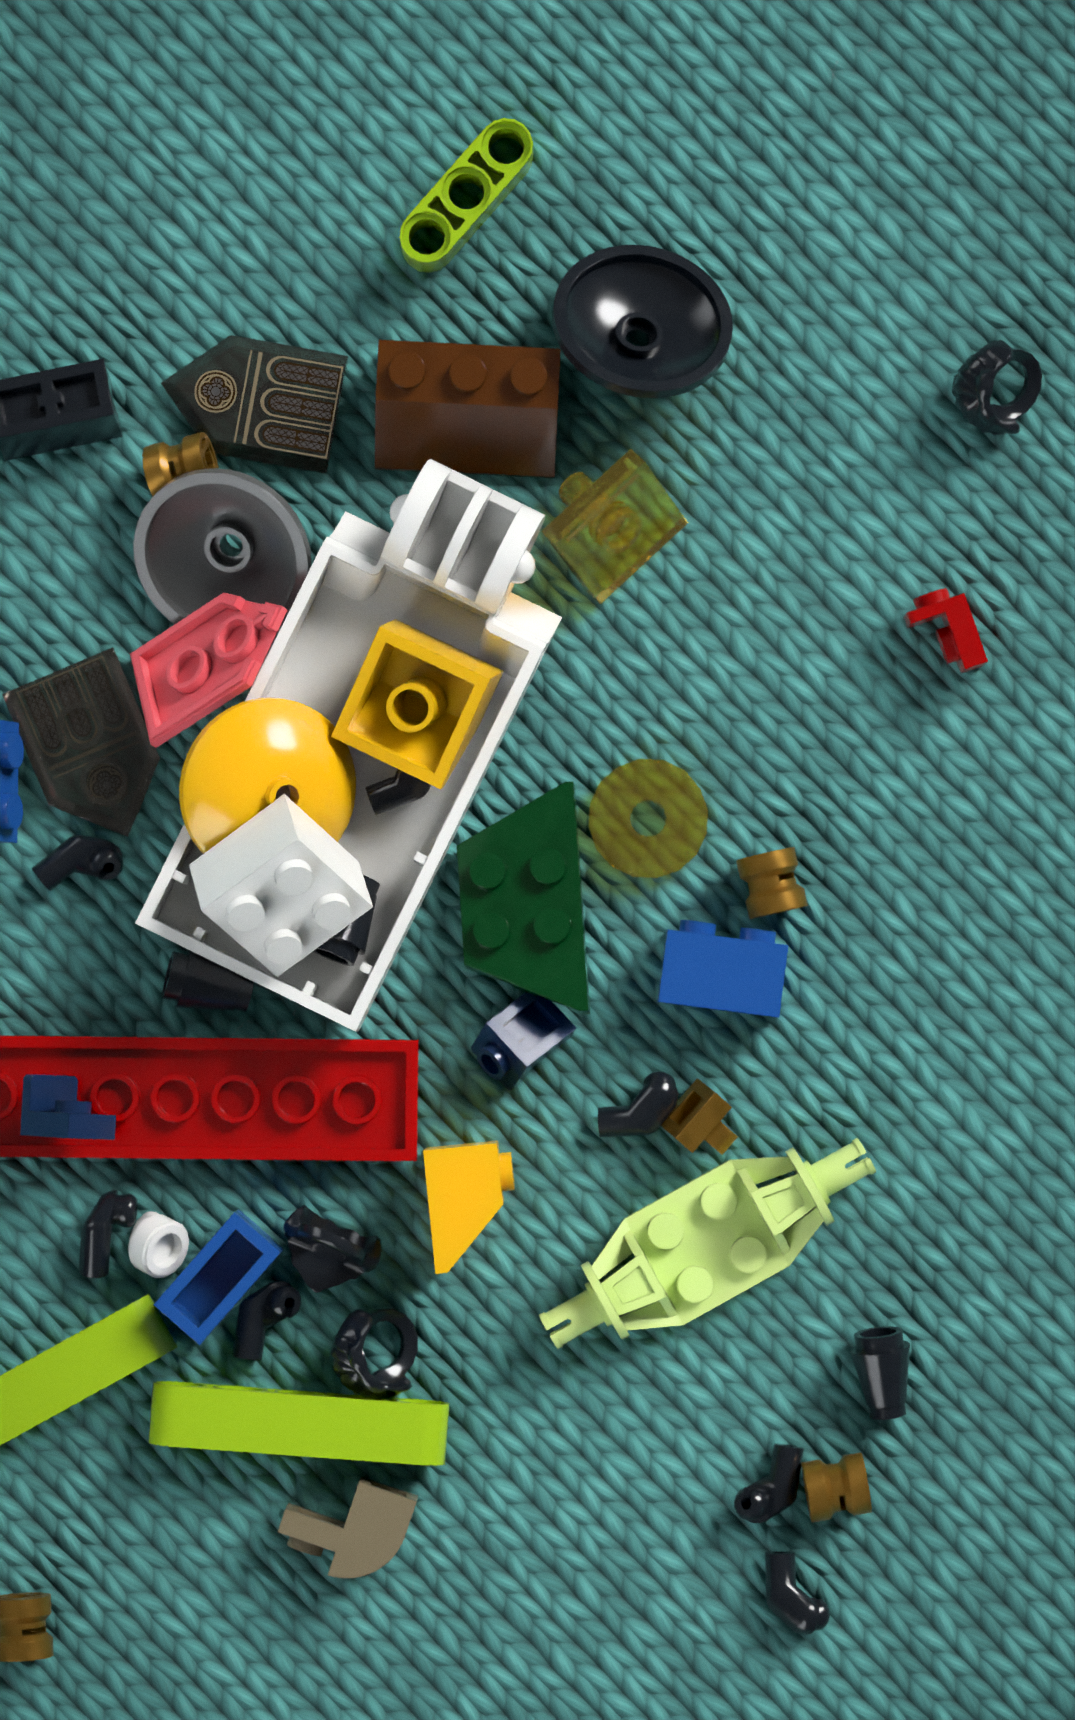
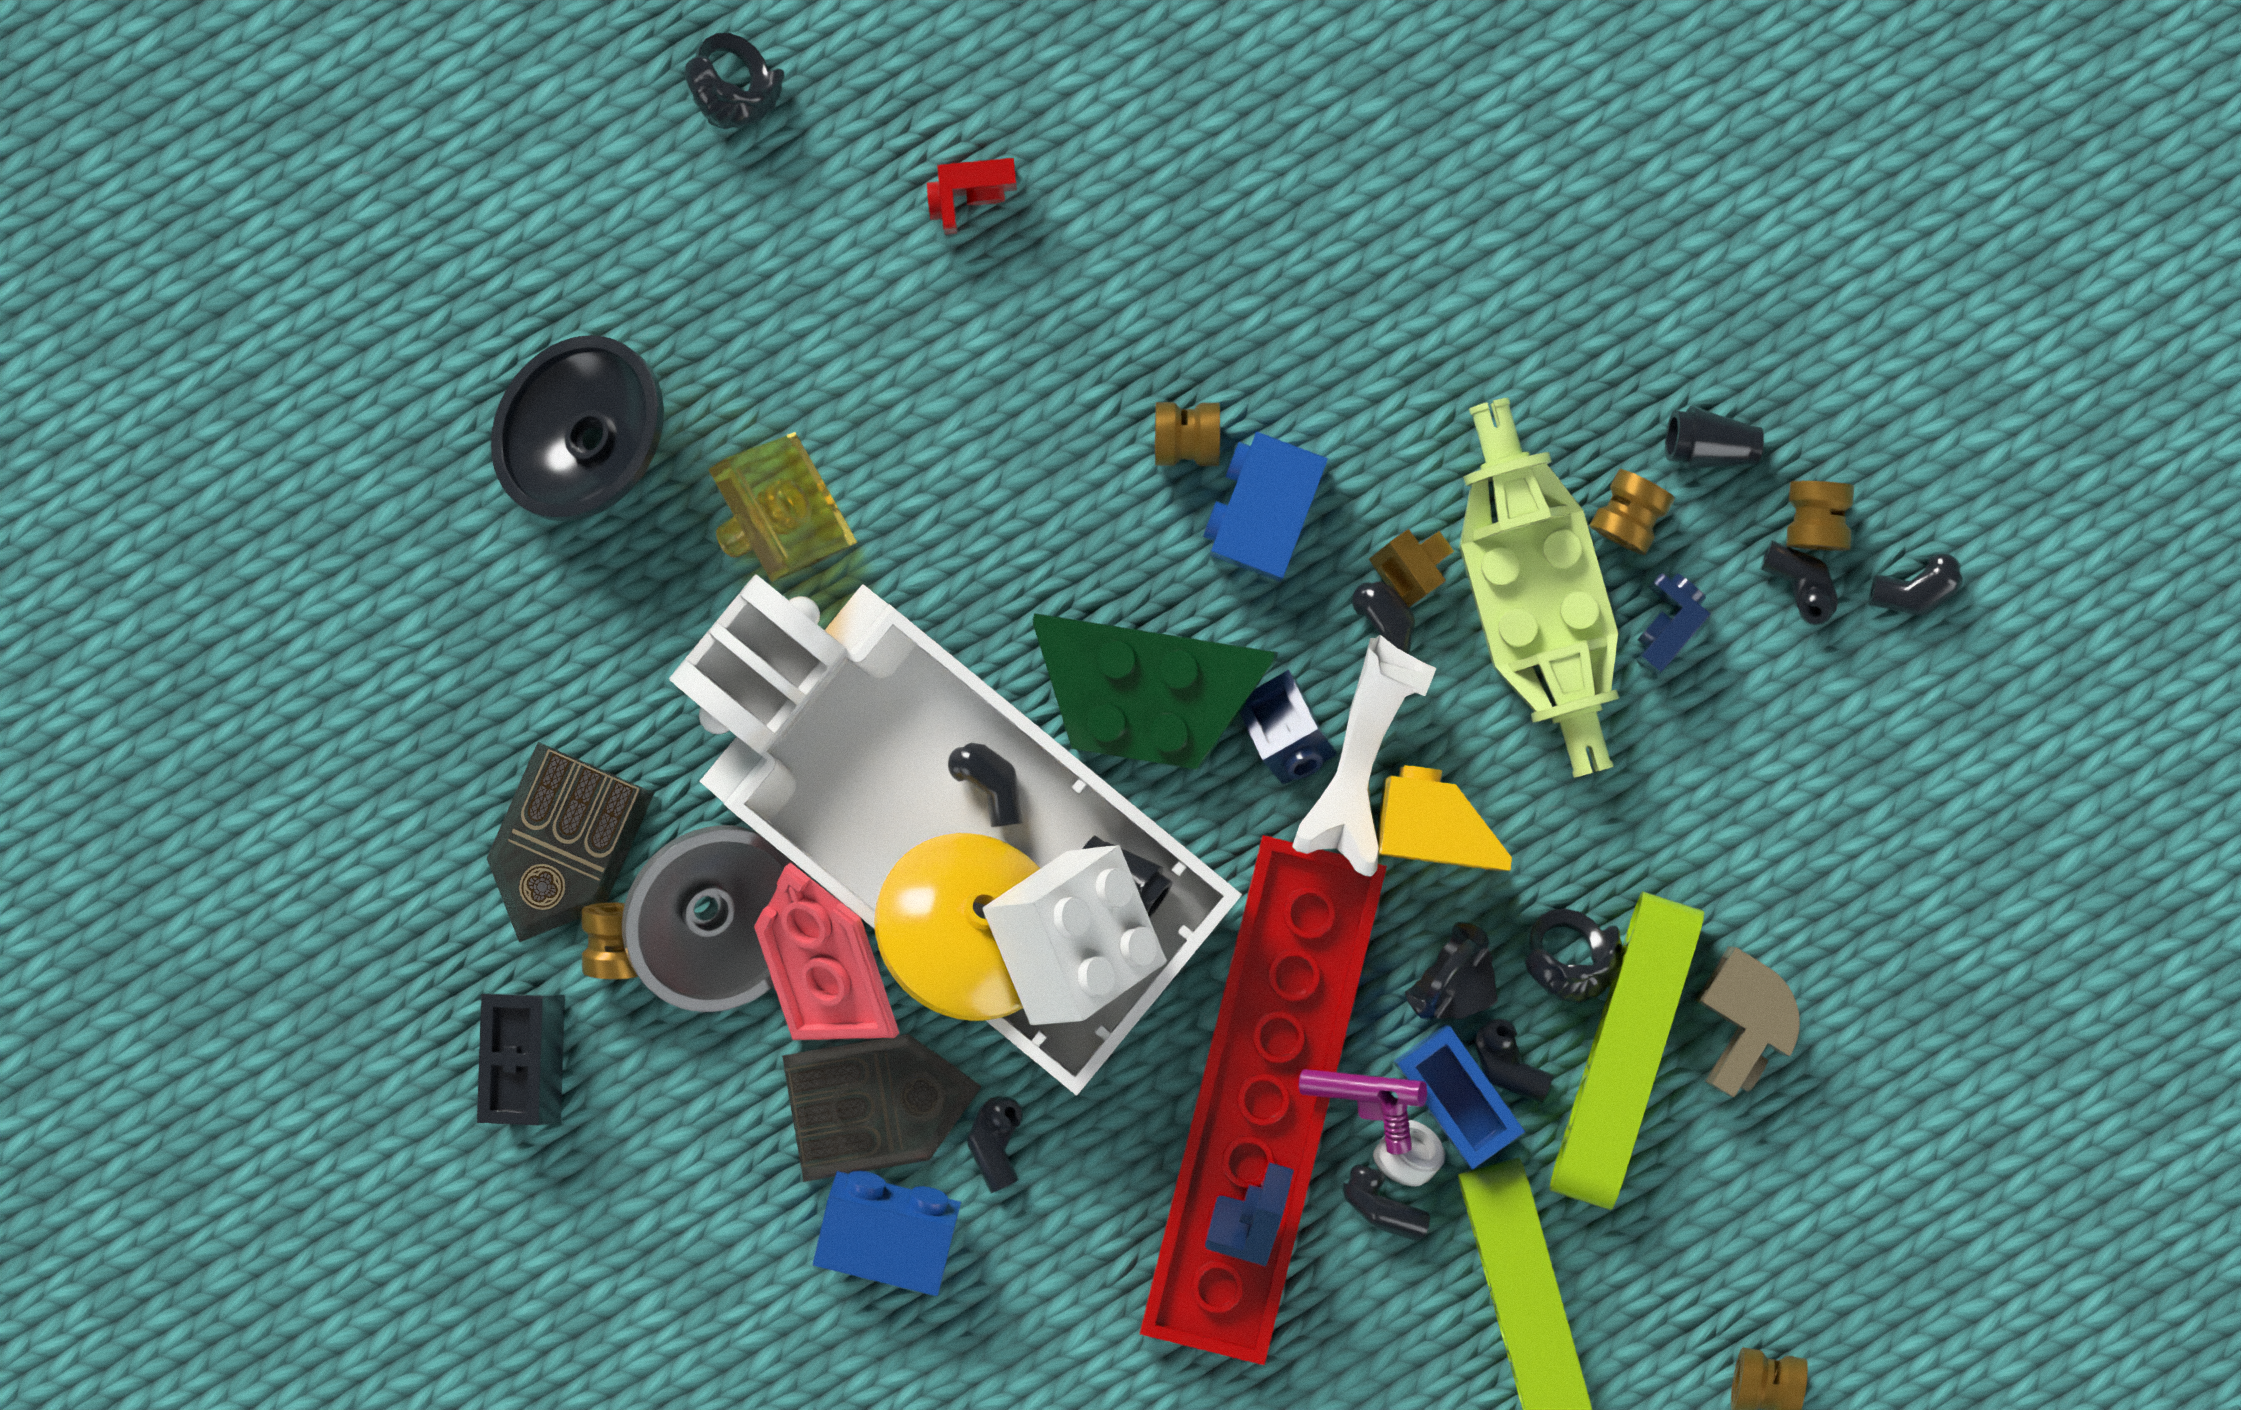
camera: 85 degrees left, 0 degrees up
(196, 1198) = (1373, 1100): none -> magenta hose
(204, 984) = (1153, 1042): black cone -> none
(416, 702) = (918, 752): yellow slope -> none
(457, 1109) = (1343, 812): none -> white animal
(467, 408) = (623, 630): reddish brown slope -> none
(473, 167) = (374, 563): lime beam -> none
(649, 782) = (1082, 508): clear yellow tile -> none
(691, 1372) = (1668, 635): none -> dark blue bracket
(798, 1311) = (1632, 511): none -> pearl gold wheel

